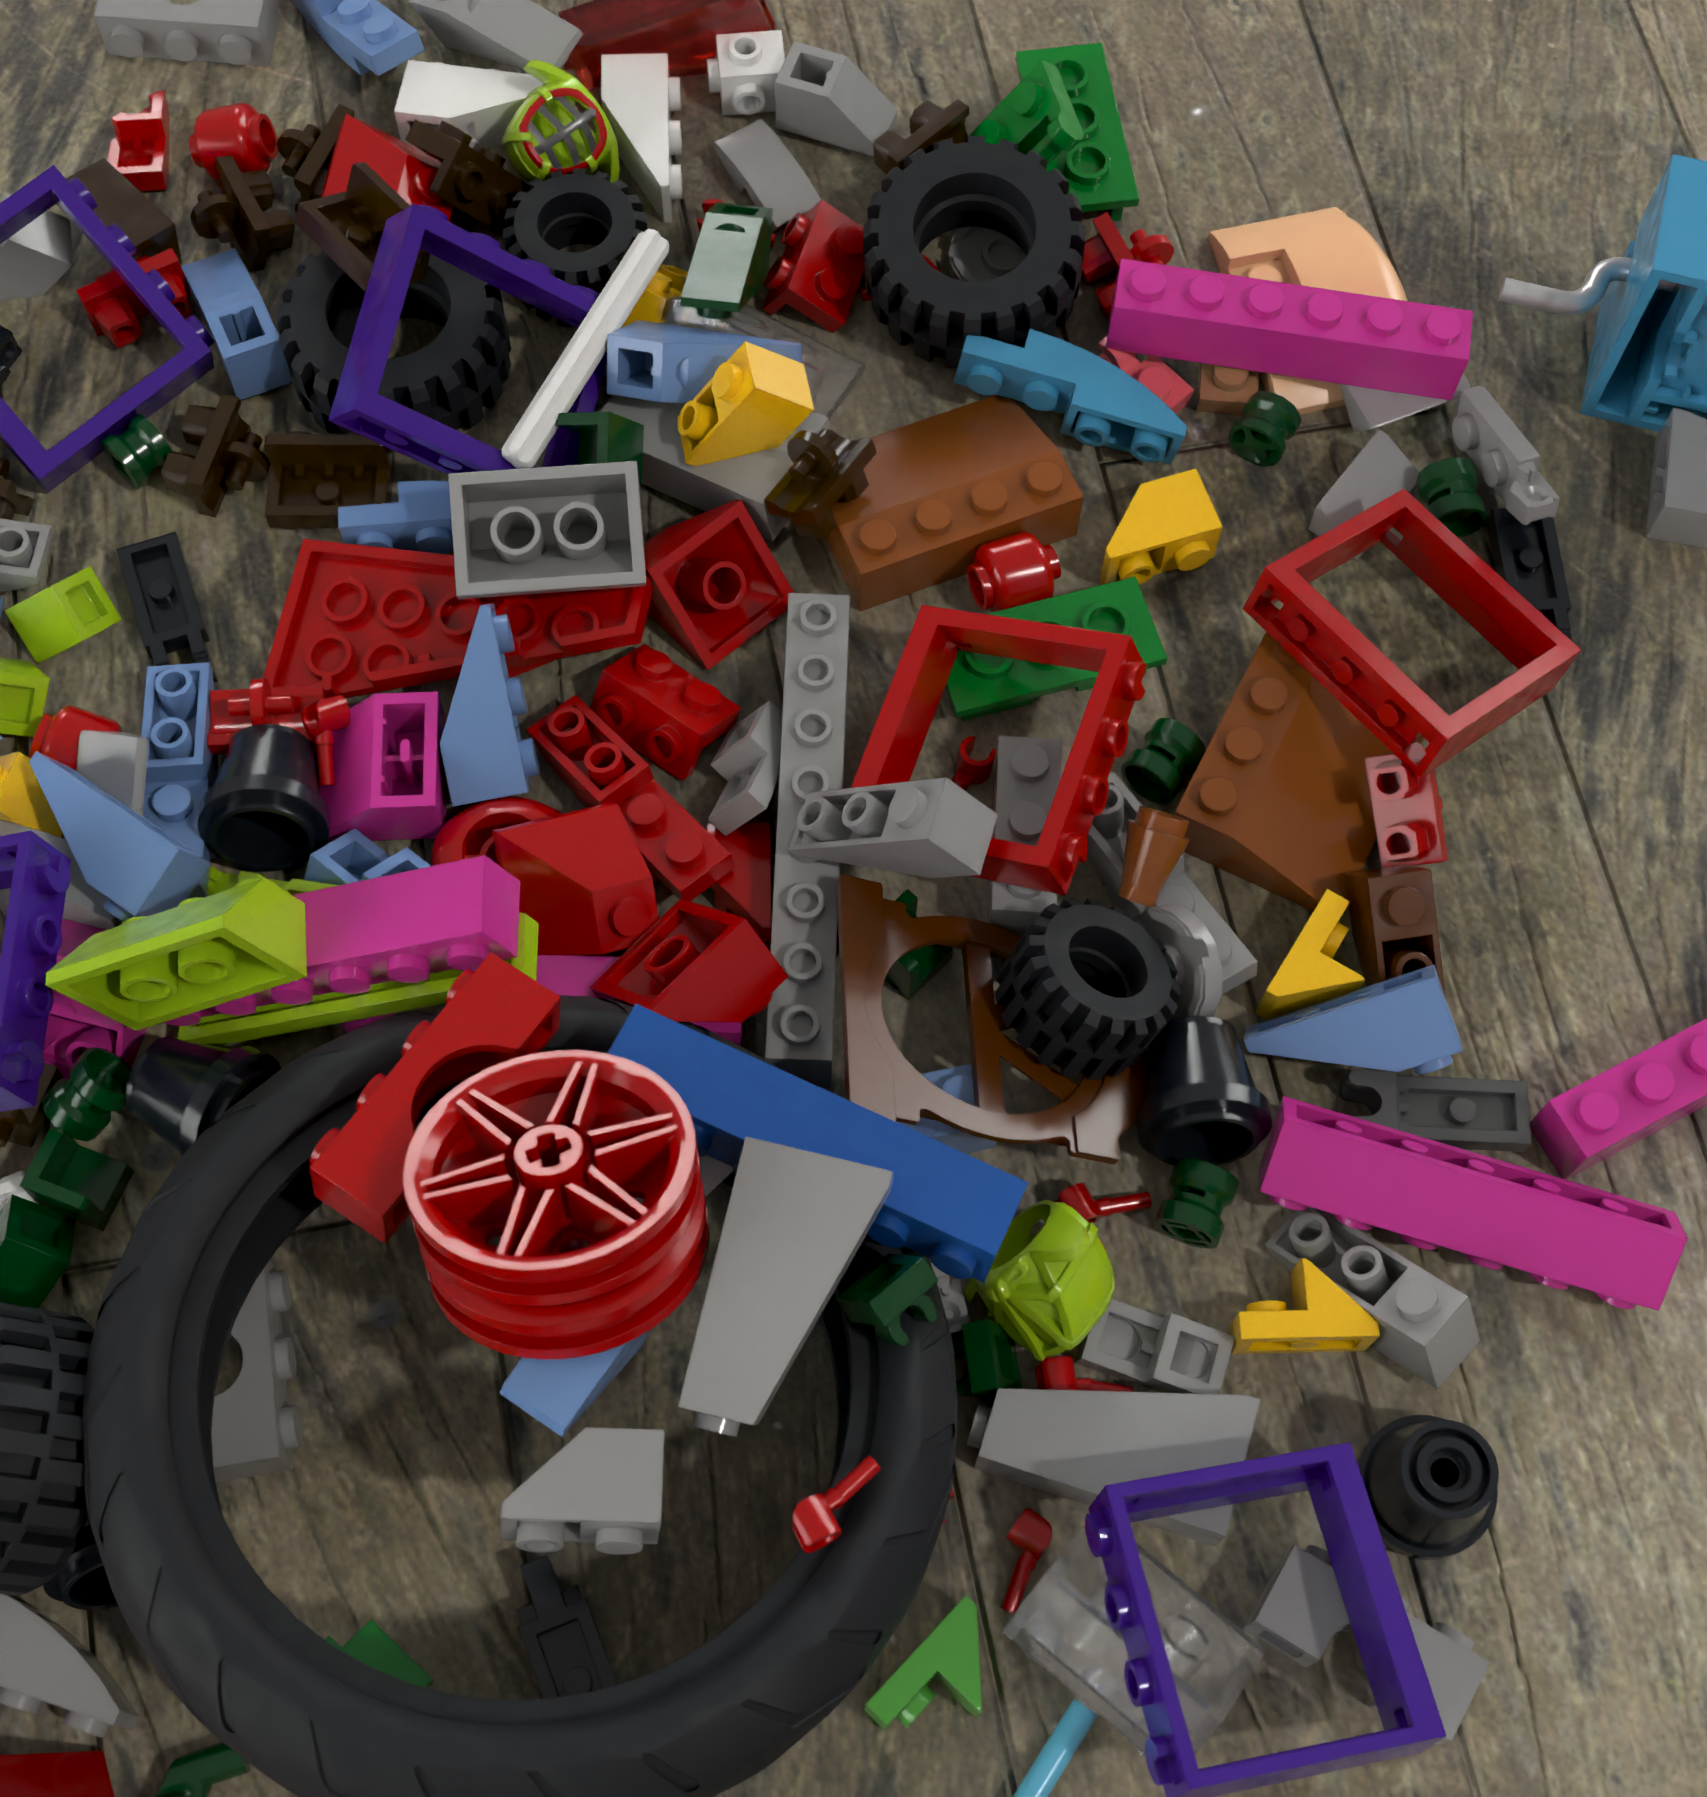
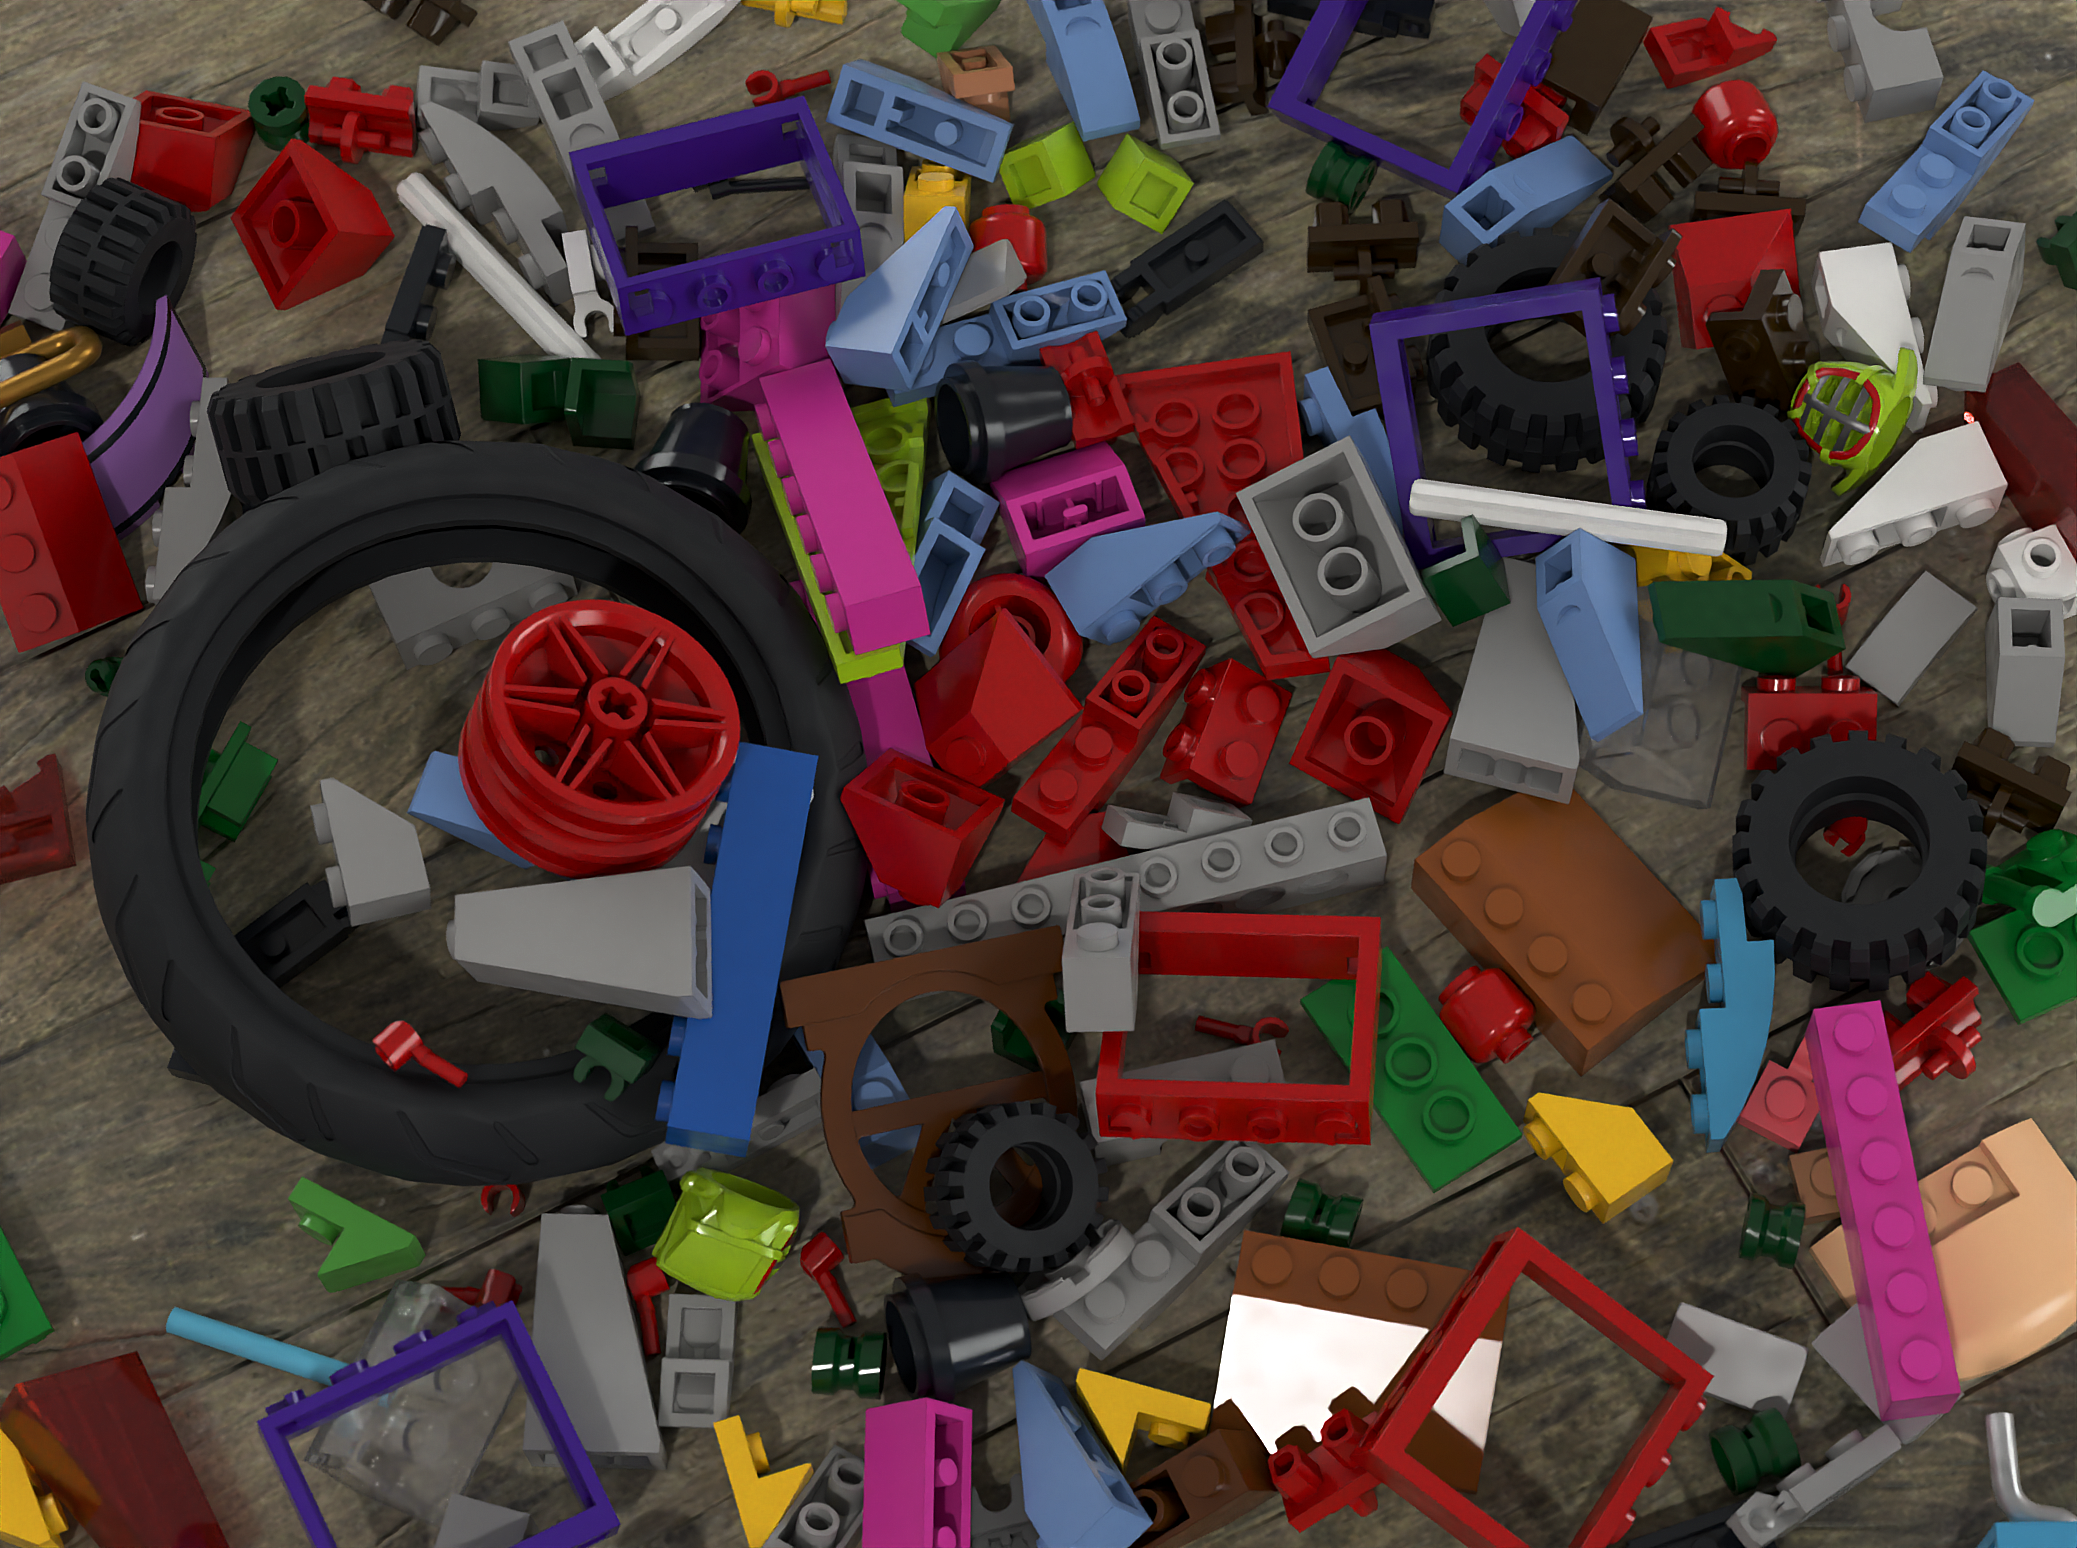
camera: 80 degrees right, 0 degrees up
(88, 1096) = (673, 379): dark green wheel -> none
(189, 956) = (786, 394): lime slope -> none
(320, 720) = (1093, 432): red hand -> none
(486, 1021) = (768, 643): red arch -> none
(745, 407) = (1546, 683): yellow slope -> none
(821, 474) = (1500, 781): dark brown hips -> none
(1151, 853) = (1180, 1209): dark orange cone -> none

